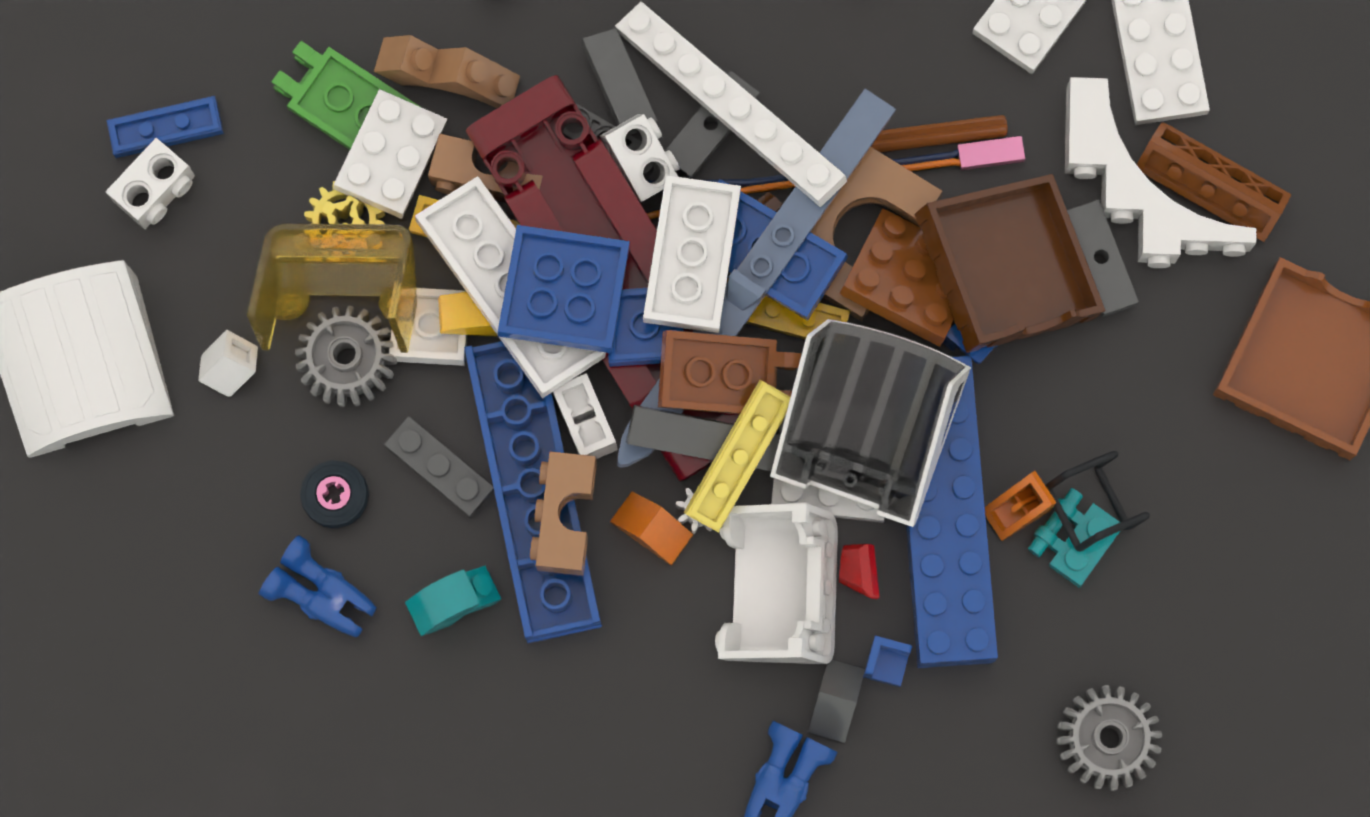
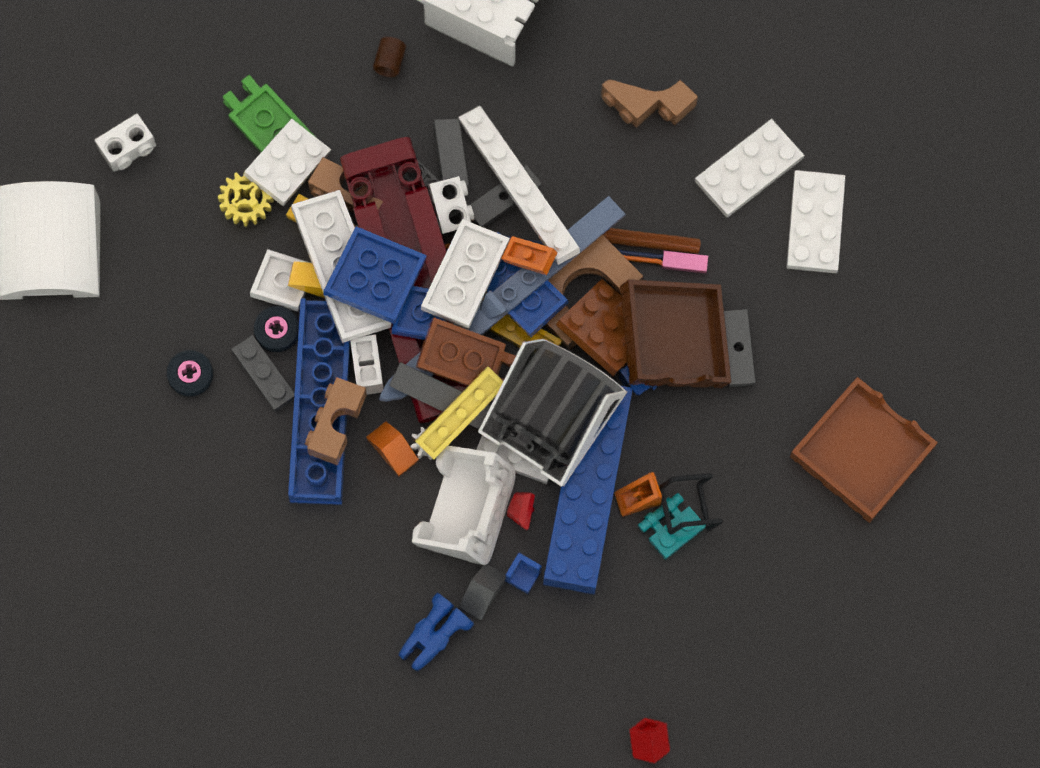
camera: 10 degrees right, 5 degrees down
(168, 124) = (149, 108): blue tile -> none
(228, 363) = (143, 271): white panel -> none
(320, 604) = (160, 441): blue piece -> none
(332, 338) = (216, 271): light grey gear -> none
(334, 262) = (229, 222): clear yellow windscreen -> none
(427, 412) = (270, 317): none -> black bush
(451, 599) = (246, 458): teal brick -> none
(452, 70) = (345, 119): medium nougat arch -> none
(776, 204) = (529, 255): none -> orange plate
(1127, 194) = (768, 312): white arch -> none
(1132, 733) = (657, 677): light grey gear -> none
(1211, 183) = (826, 318): dark orange fence -> none

